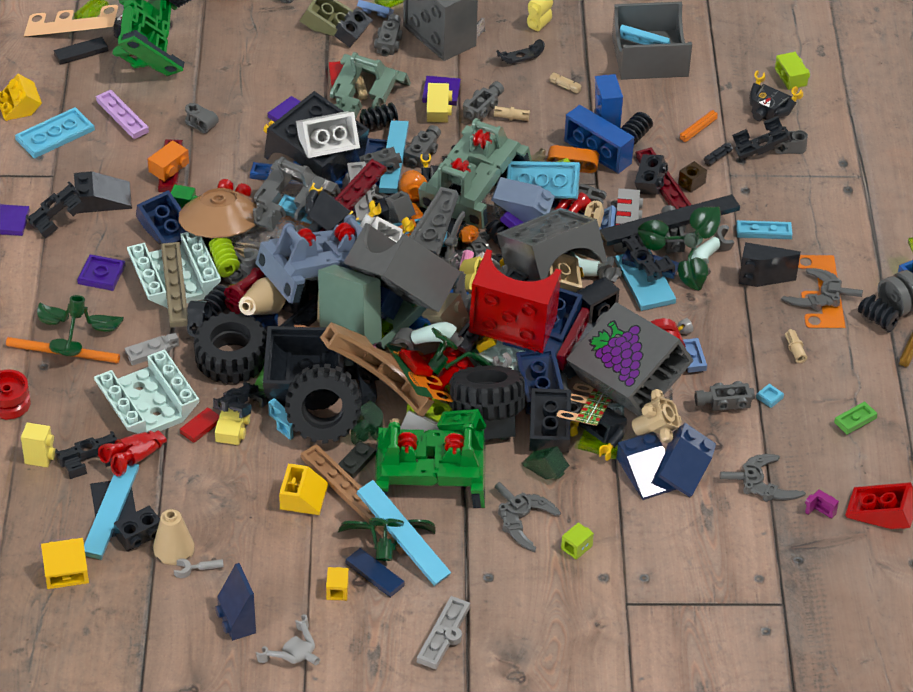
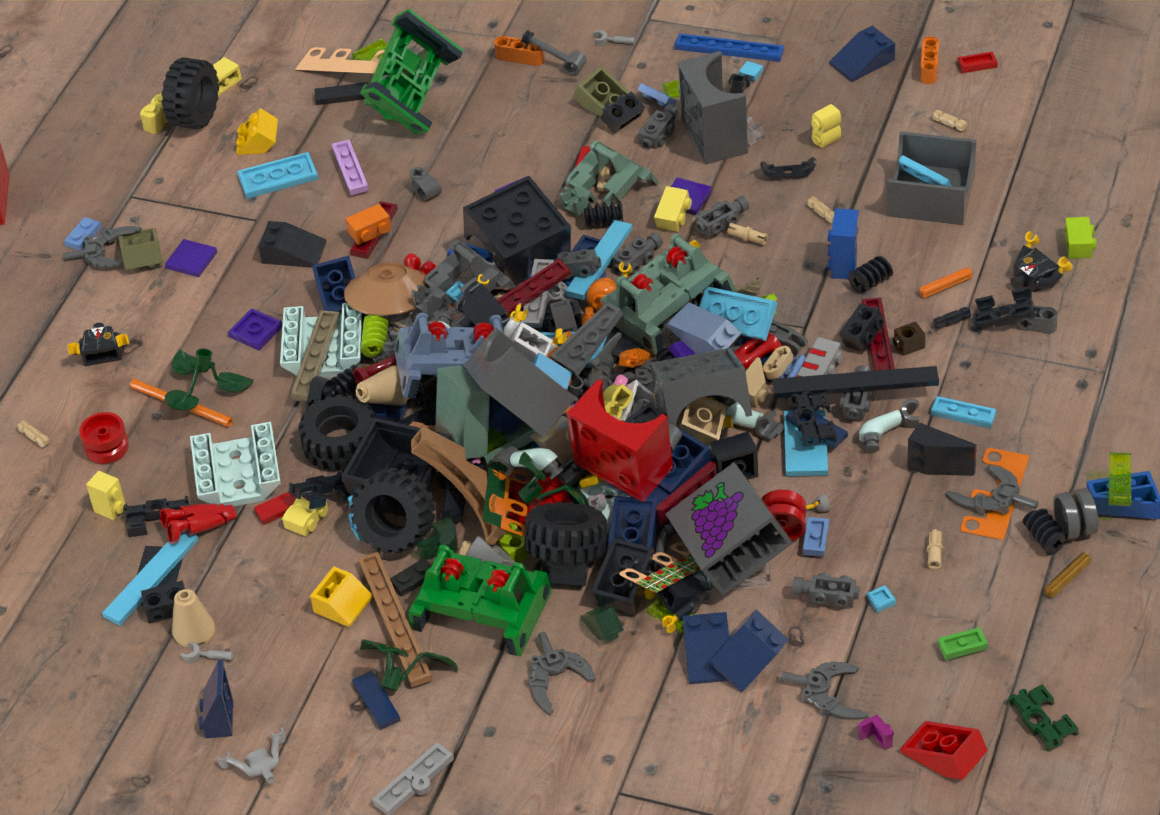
camera: 25 degrees right, 0 degrees up
(64, 198) = (248, 246): black piece -> none
(65, 563) = (76, 622): yellow slope -> none
(139, 352) = (276, 416): light grey hinge -> none
(183, 194) = (364, 261): green brick -> none
(328, 134) = (521, 224): white slope -> none
(337, 583) = (331, 703): yellow brick -> none
(405, 535) = (416, 665): medium azure tile -> none
(415, 363) = (507, 486): red tile -> none
(456, 419) = (529, 557): green panel -> none
(577, 540) = (595, 712): lime brick -> none
(586, 157) = (790, 295): orange beam -> none
(593, 132) = (823, 278): blue brick -> none
(658, 417) = (733, 597): tan piece -> none
(706, 222) = (876, 390): dark green plant -> none

